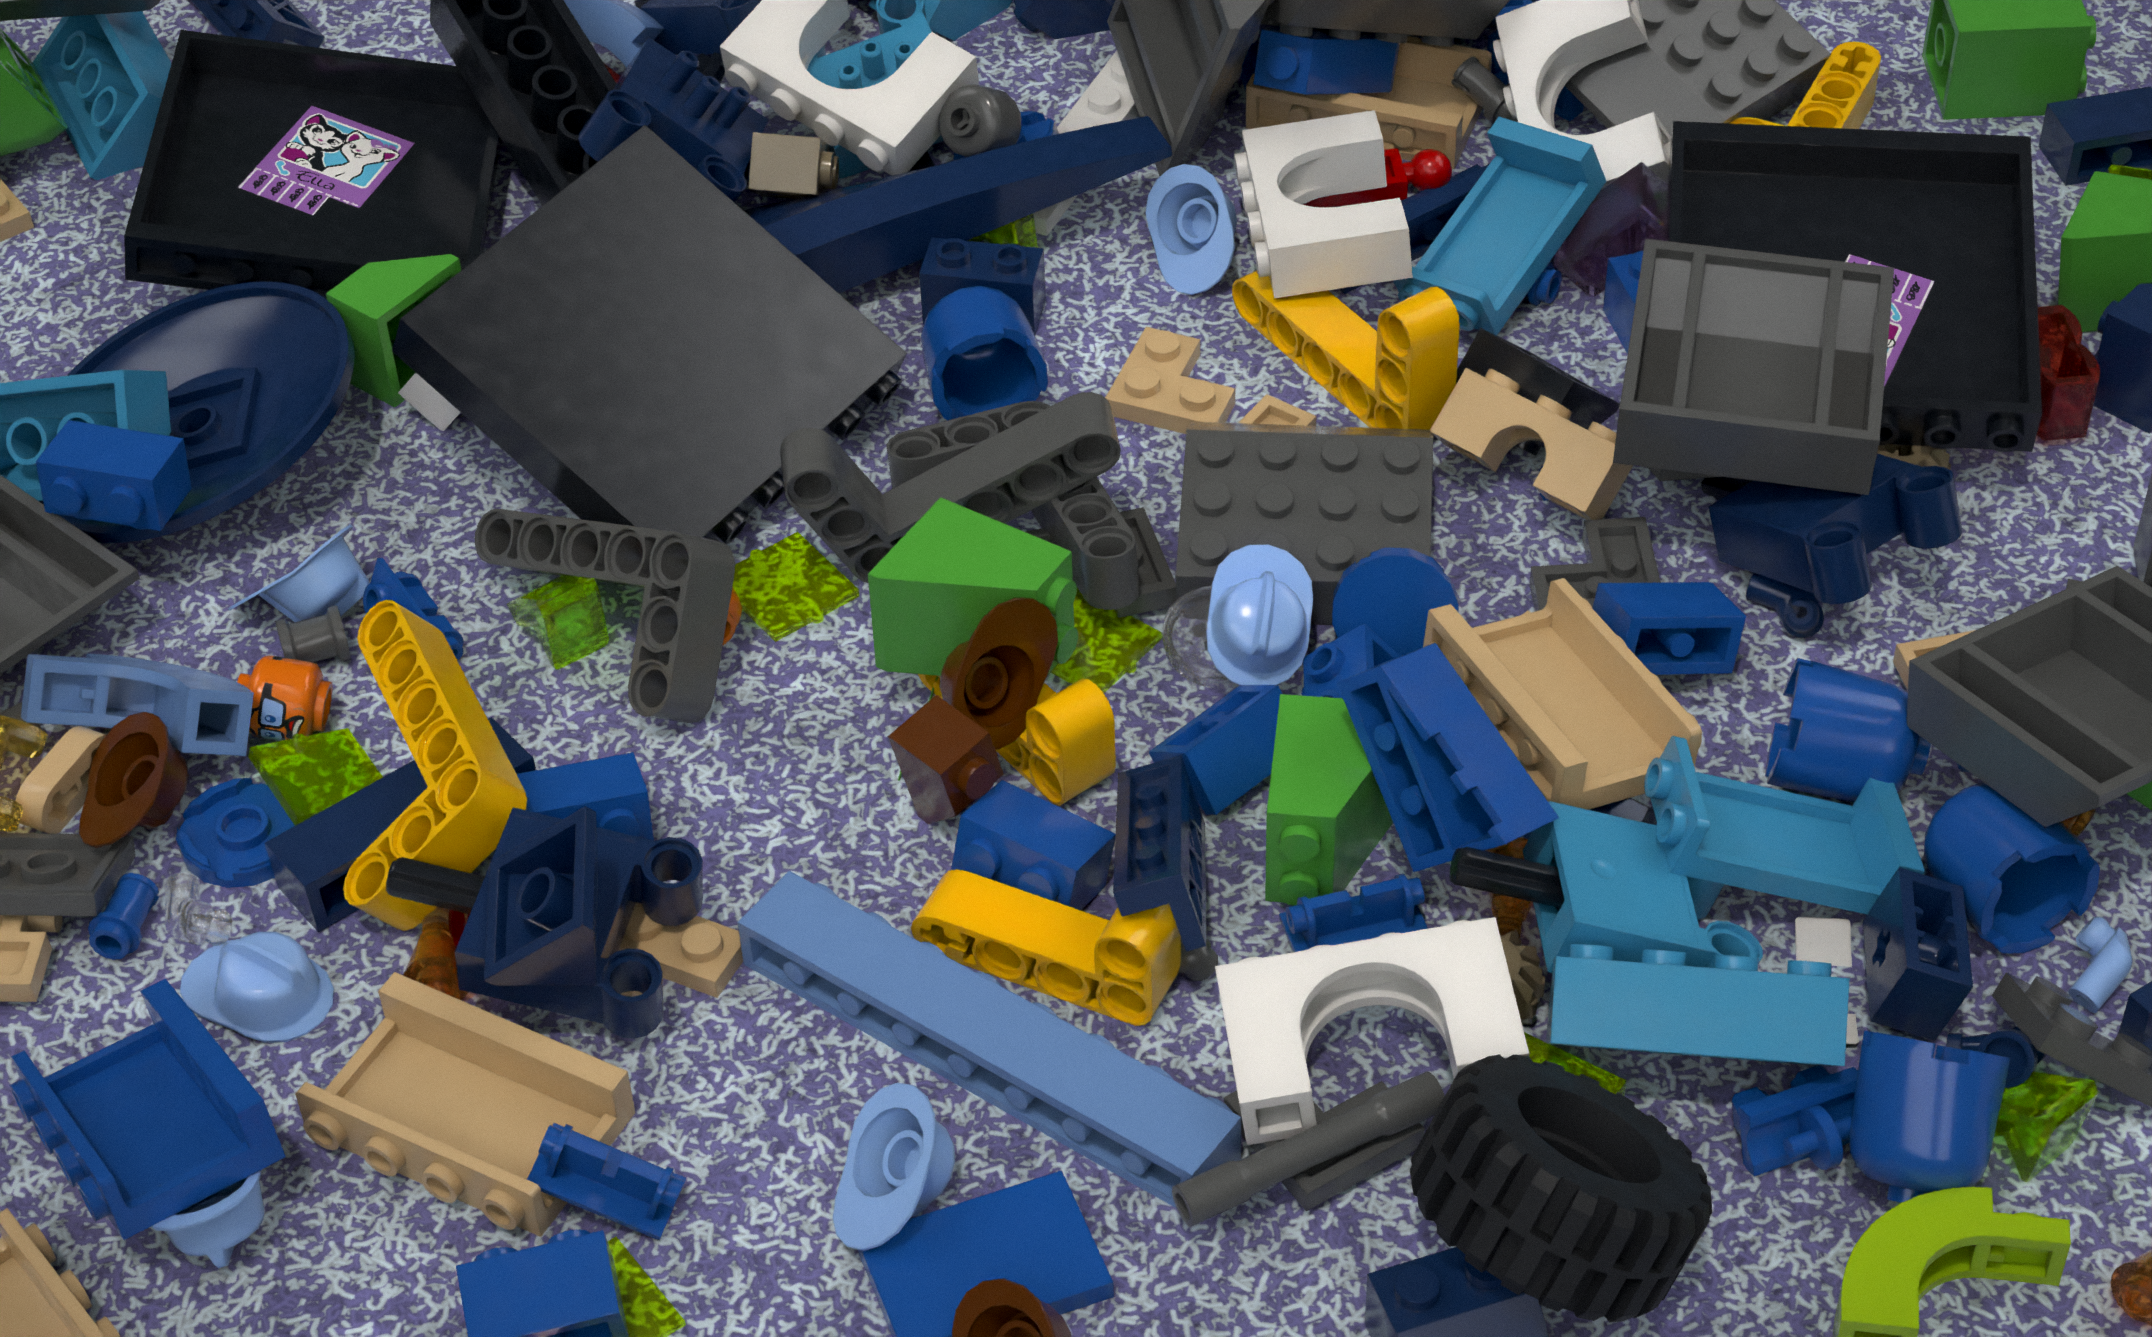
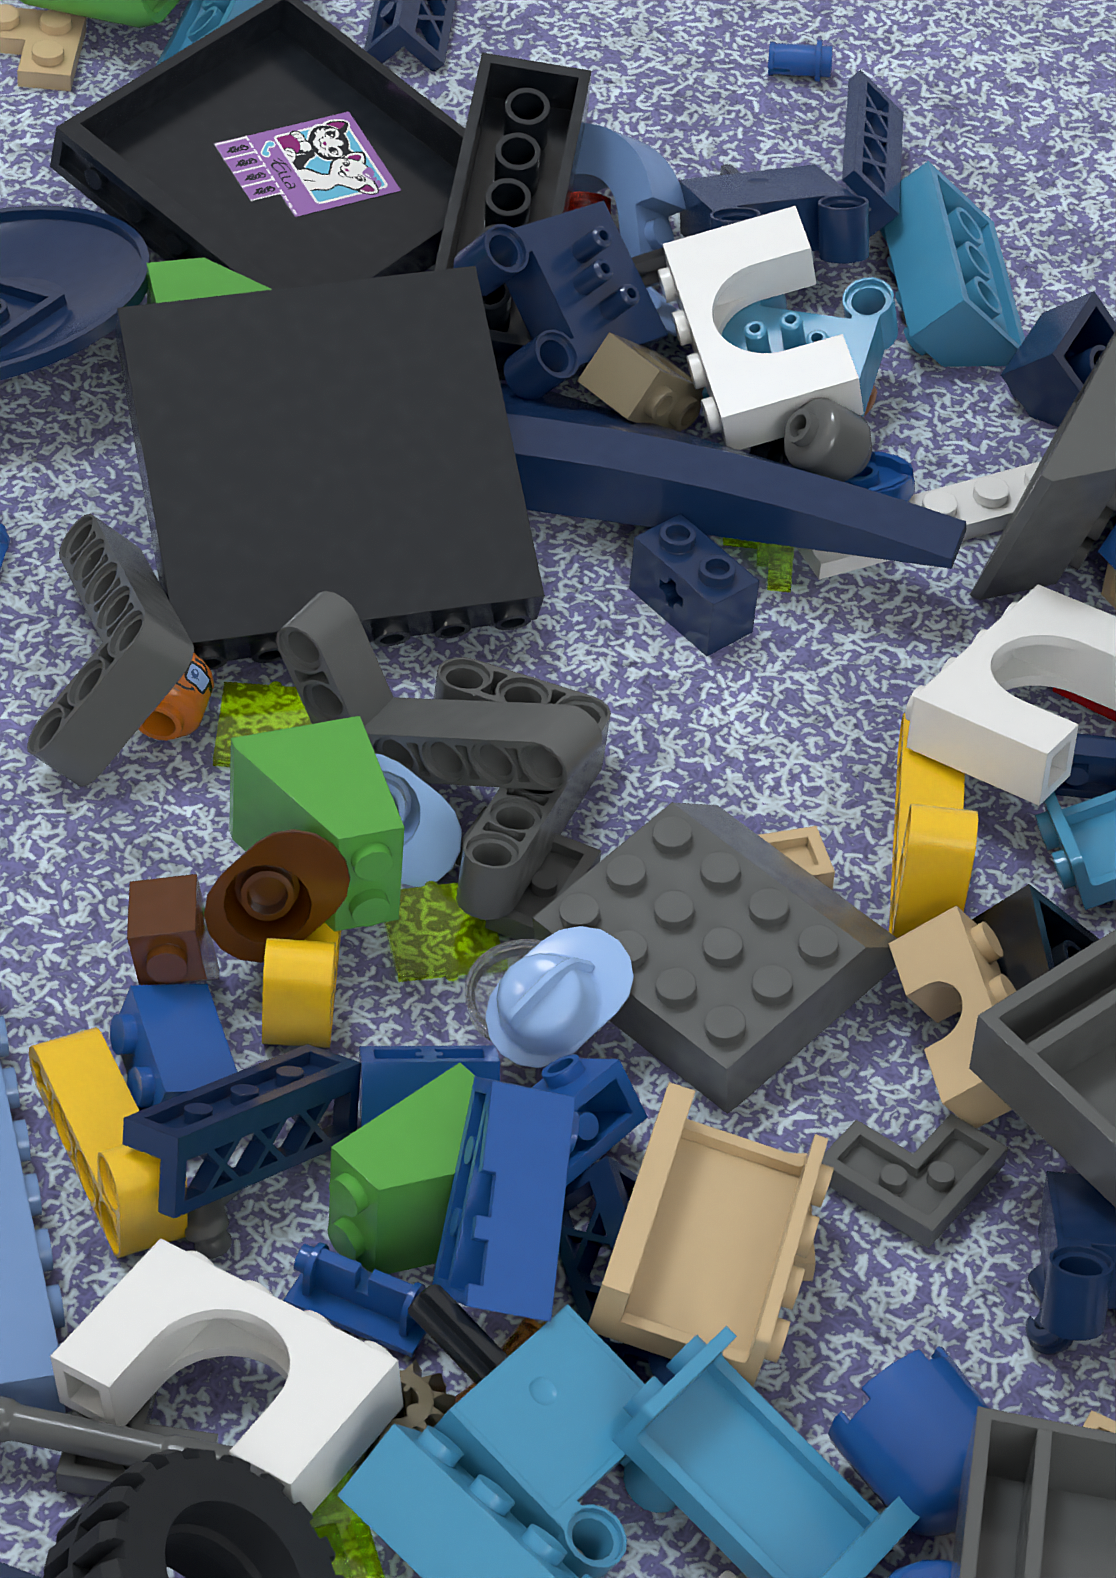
camera: 35 degrees right, 0 degrees up
(565, 617) = (58, 638): clear neon green slope -> none
(980, 353) = (610, 636): blue cylinder -> none
(1157, 389) = (746, 766): tan plate -> none
(1191, 228) = (923, 639): light blue piece -> none
(1392, 596) = (689, 1050): blue tile -> none
(1674, 625) = (892, 1248): blue brick -> none

